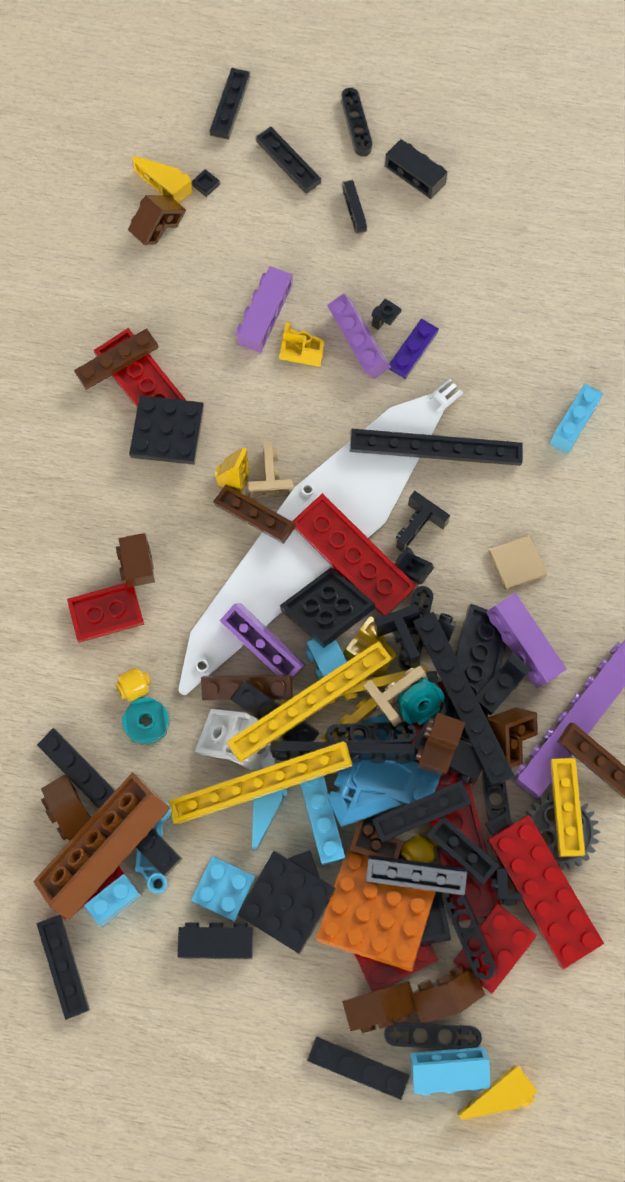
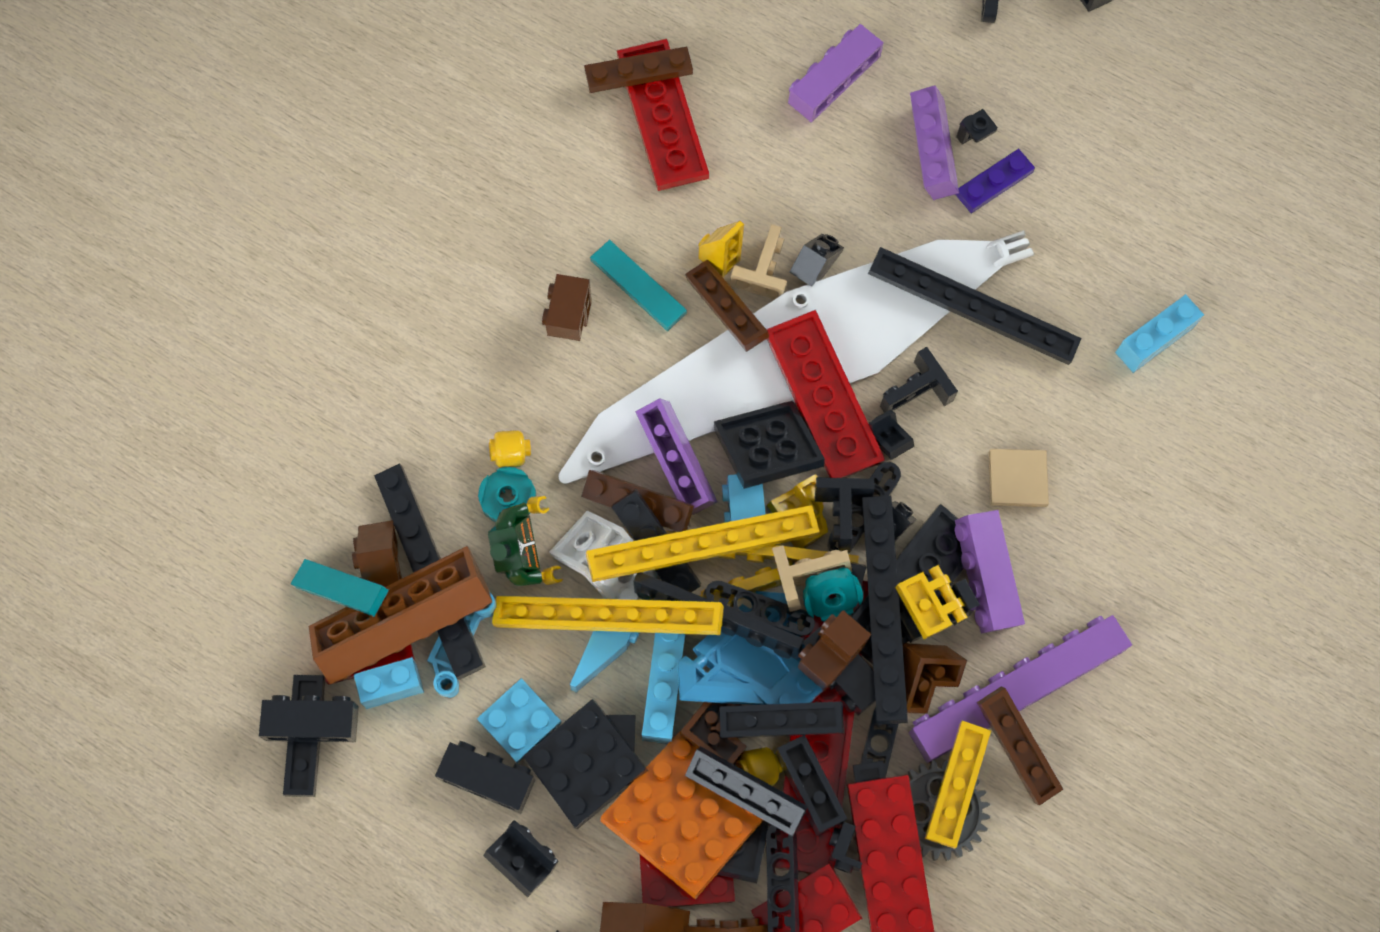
camera: 20 degrees right, 0 degrees up
(46, 842) = (339, 587): none -> teal tile
(63, 953) = (308, 719): none -> black brick
(105, 612) = (510, 354): red plate -> none
(166, 430) = (664, 172): black plate -> none
(168, 757) = (515, 547): none -> dark green torso
(181, 522) = (638, 285): none -> teal tile
(267, 993) = (521, 858): none -> black bracket
(301, 347) = (860, 132): yellow slope -> none
(306, 454) = (816, 258): none -> slope
(493, 685) = (925, 606): none -> yellow plate

